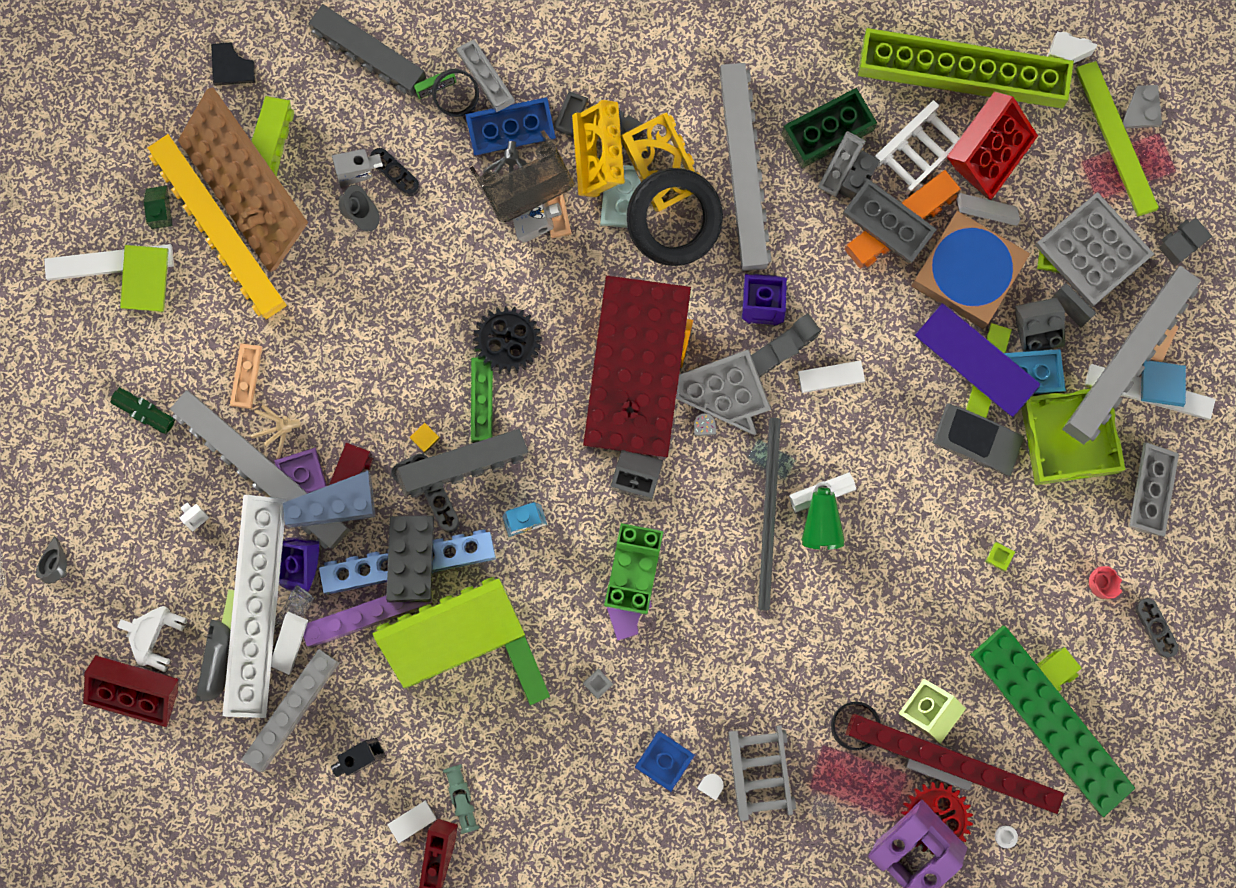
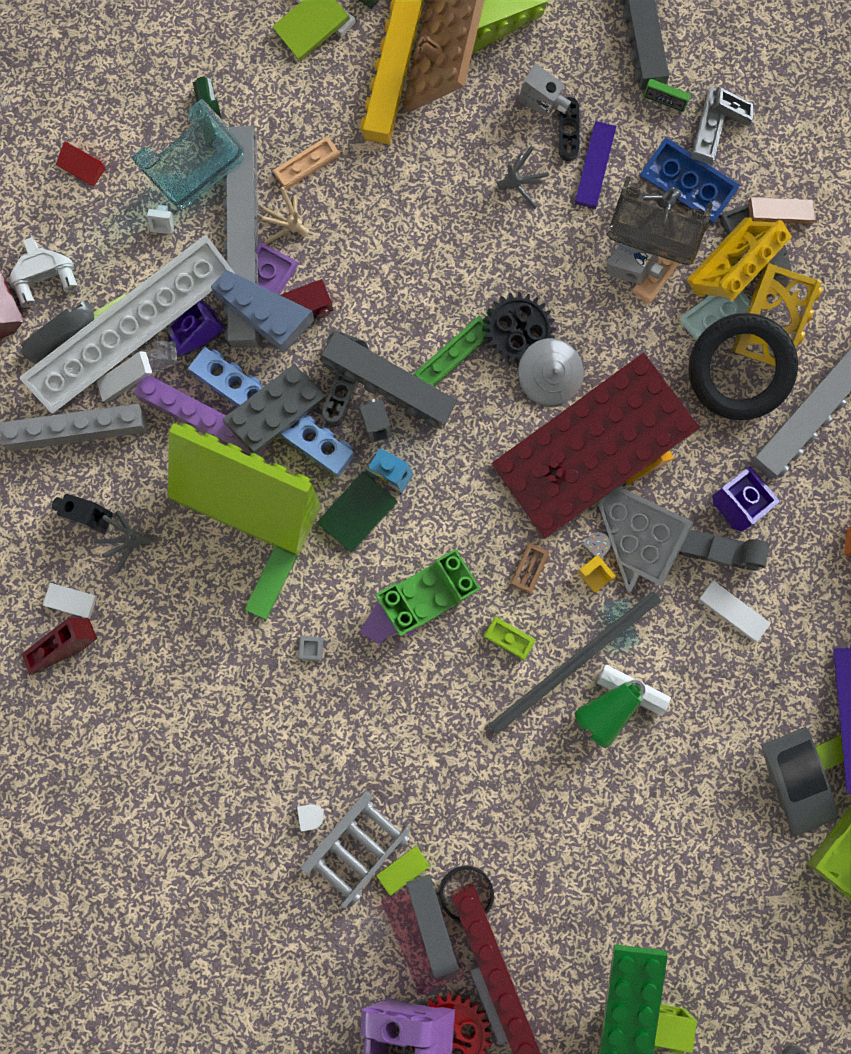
camera: 45 degrees right, 0 degrees up
(52, 563) = (31, 152): dark grey piece -> none
(94, 537) = (80, 164): none -> red slope
(179, 453) = (194, 159): none -> clear light blue windscreen
(359, 207) = (515, 126): dark grey piece -> none
(397, 244) = (514, 179): none -> dark grey plant
(408, 741) = (131, 539): none -> dark grey plant
(424, 437) = (383, 337): yellow tile -> none
(438, 178) = (595, 165): none -> dark purple tile
(462, 801) = (118, 626): sand green piece -> none
(470, 107) = (687, 134): black tyre -> none
(482, 496) = (375, 420): none -> dark grey brick
(489, 49) = (733, 106): none -> dark grey tile
(532, 567) = (357, 512): none -> dark green tile
(557, 346) = (550, 372): none -> light grey hat
(590, 85) = (781, 209): none -> tile
(636, 475) = (506, 526): dark grey slope -> none
(664, 761) = (296, 759): blue tile -> none
(685, 502) = (521, 586): none -> medium nougat tile
(713, 542) = (509, 638): none -> lime plate
(723, 444) = (596, 574): none -> yellow panel
(802, 754) = (403, 870): none -> lime tile
(858, 766) = (433, 928): none -> dark grey beam
(932, 710) = (537, 949): yellowish green slope -> none
(1000, 556) = (719, 889): lime tile -> none
(1105, 583) = (782, 1002): coral hair -> none

